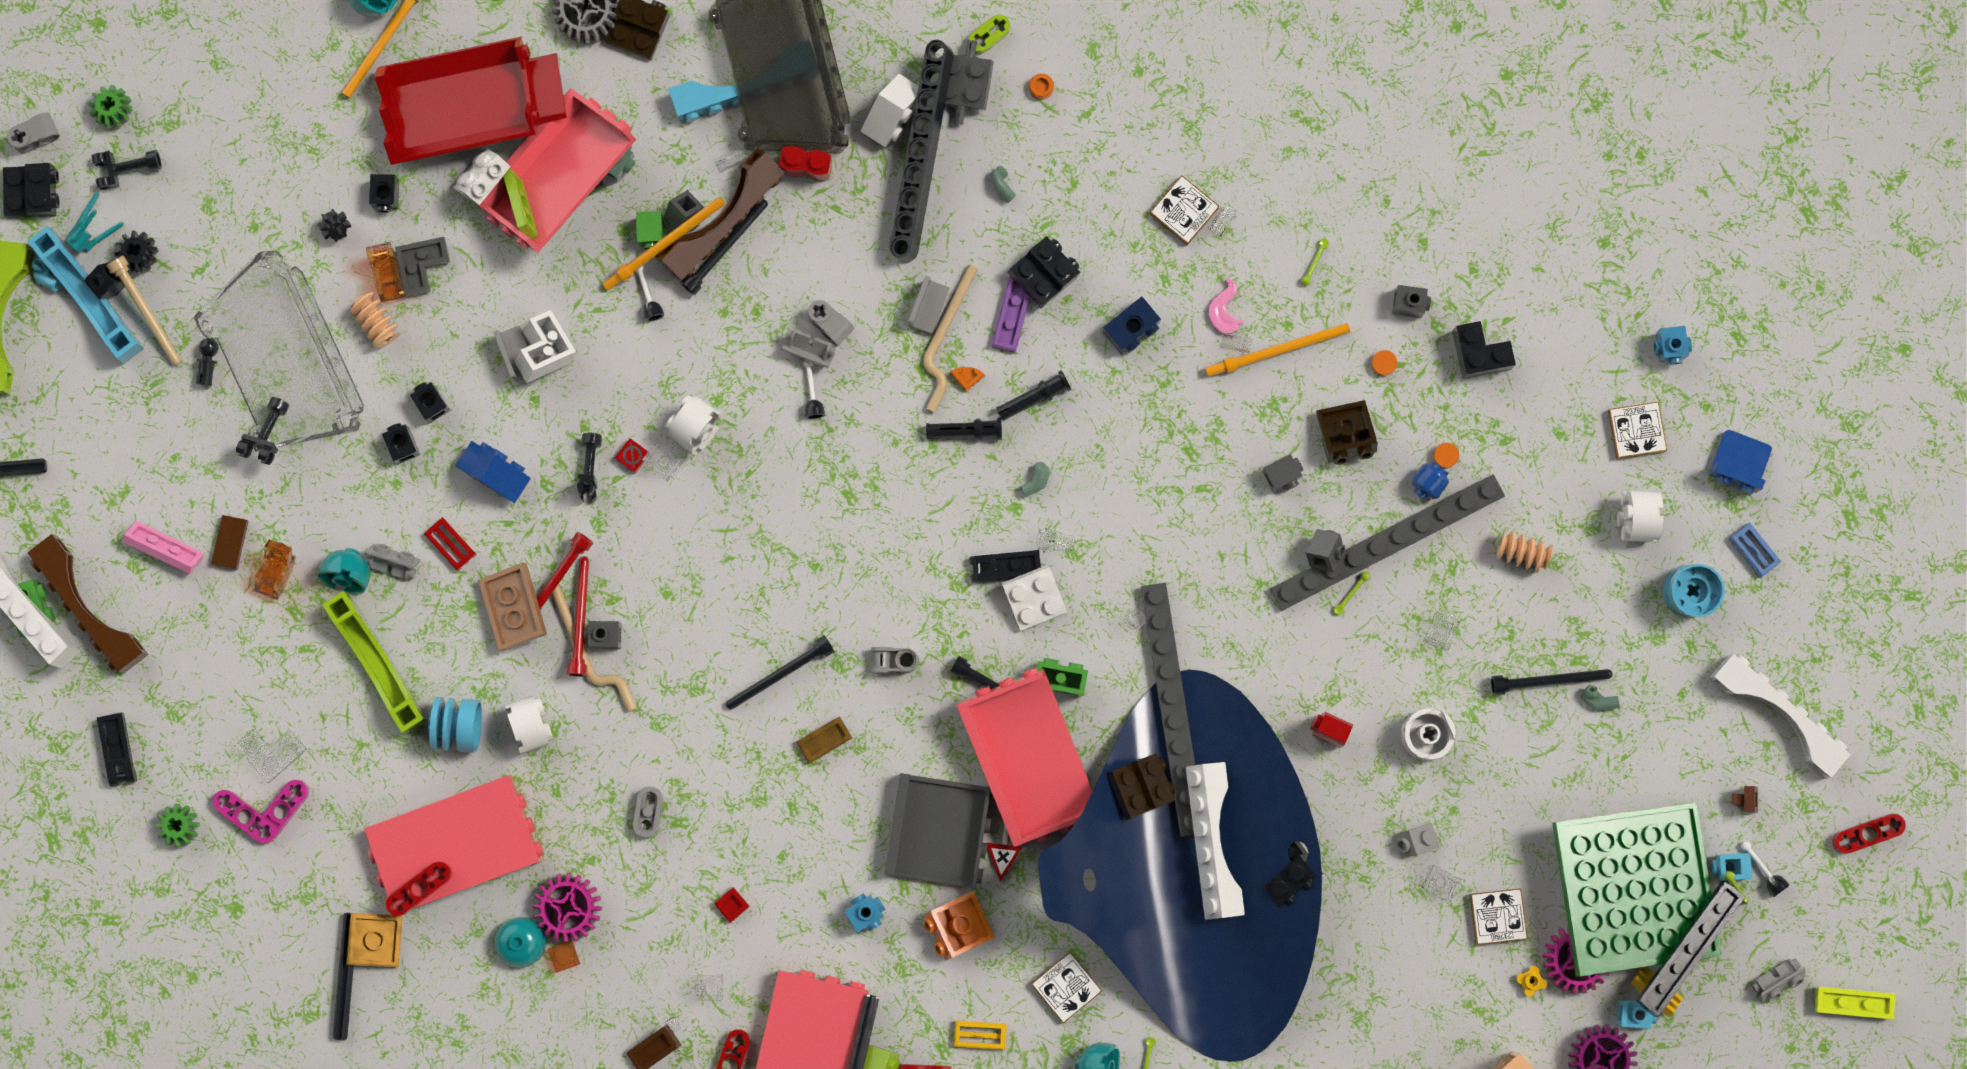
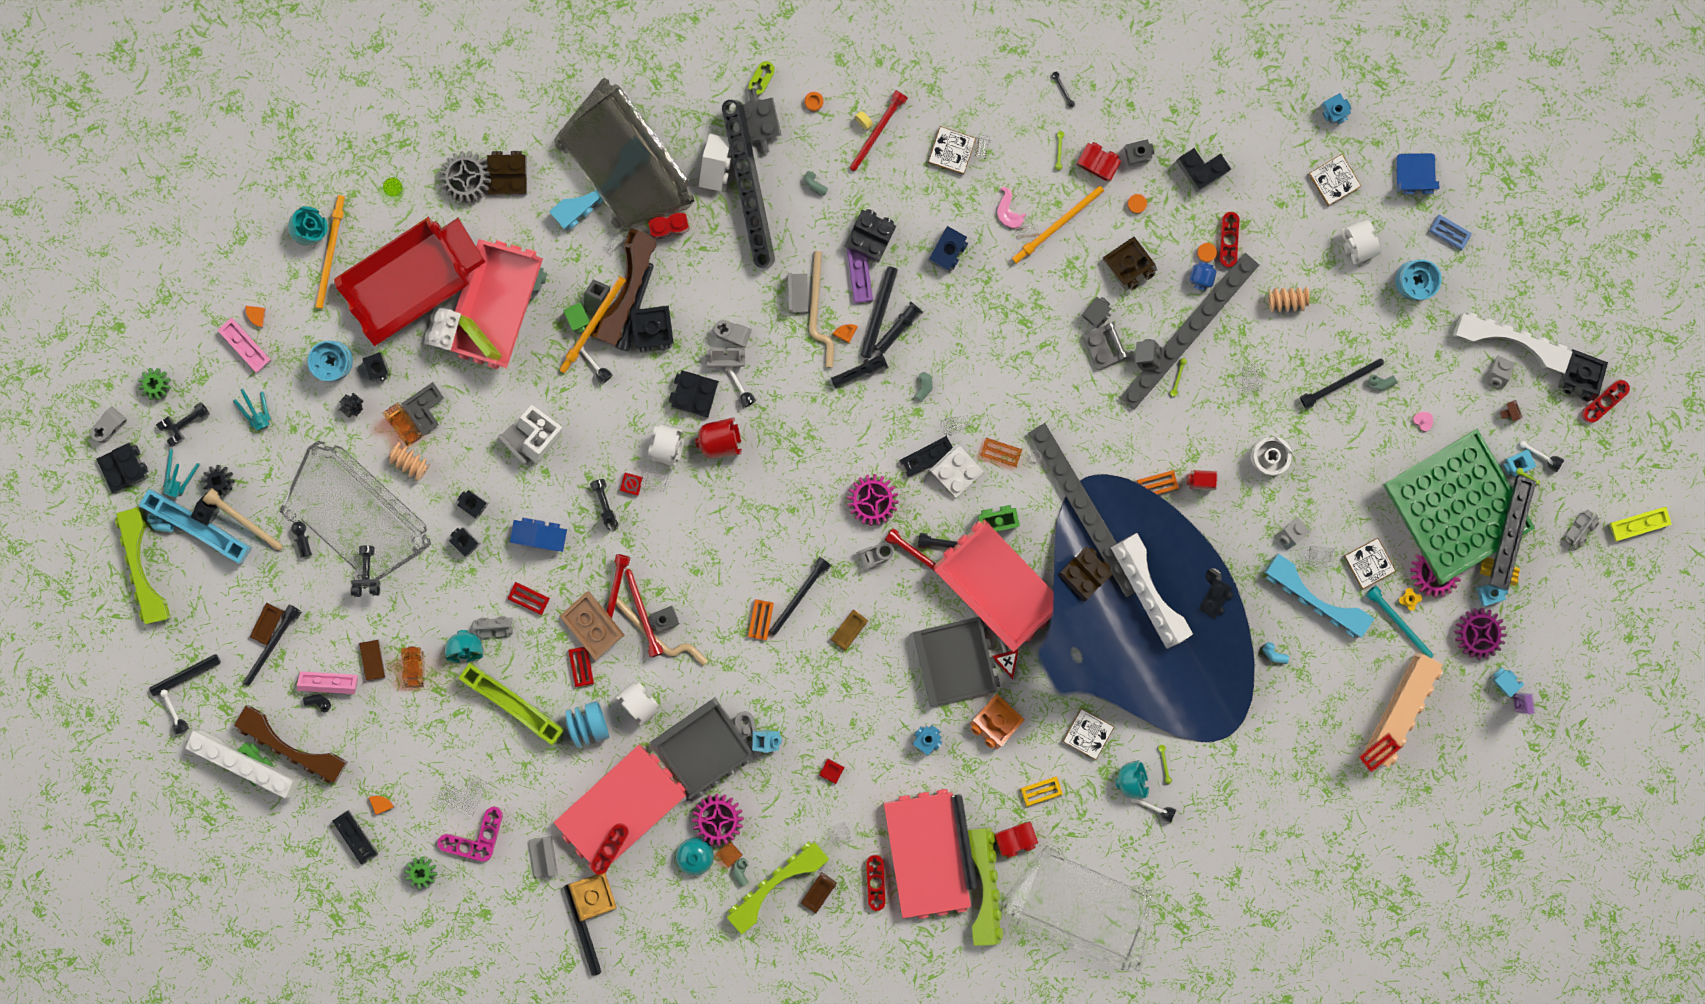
camera: 25 degrees left, 5 degrees up
(121, 447) = (266, 623): none -> reddish brown tile
(144, 566) = (318, 700): none -> black arm
(156, 447) = (291, 614): none -> black piece
(165, 721) = (380, 803): none -> orange tile
(216, 199) = (259, 420): none -> teal plant
(237, 103) = (244, 345): none -> bright pink plate
(267, 74) = (256, 315): none -> orange tile
(321, 151) = (319, 358): none -> medium azure wheel
(335, 867) = (543, 856): none -> light grey panel
(465, 670) = (573, 666): none -> red tile
(556, 1038) = (808, 860): none -> lime arch
(566, 983) = (738, 871): none -> sand green arm
(586, 811) = (704, 748): none -> dark grey panel
(673, 835) = (771, 740): none -> medium azure brick
(733, 665) = (757, 635): none -> orange tile
(734, 278) = (652, 328): none -> black plate
(752, 376) = (693, 393): none -> black plate
(760, 443) = (719, 439): none -> red cylinder
(895, 588) = (876, 516): none -> dark pink gear
(924, 649) = (894, 538): none -> red piece
(1017, 369) = (879, 312): none -> black axle
(1092, 131) = (863, 120): none -> light yellow tile
(1114, 611) = (986, 447): none -> clear orange tile
(1142, 124) = (897, 100): none -> red piece
(1269, 521) = (1099, 348): none -> flat silver plate
(1297, 706) = (1174, 480): none -> orange tile
(1333, 982) = (1269, 651): none -> medium azure arm
(1345, 171) = (1055, 76): none -> black hinge
(1357, 294) = (1099, 162): none -> red brick
(1388, 886) = (1285, 573): none -> medium azure arch
(1481, 430) = (1235, 225): none -> red beam
(1490, 959) = (1375, 595): none -> teal piece
(1633, 766) = (1424, 420): none -> bright pink piece
(1750, 746) = (1500, 372): none -> light grey bracket
(1853, 791) = (1583, 376): none -> black plate

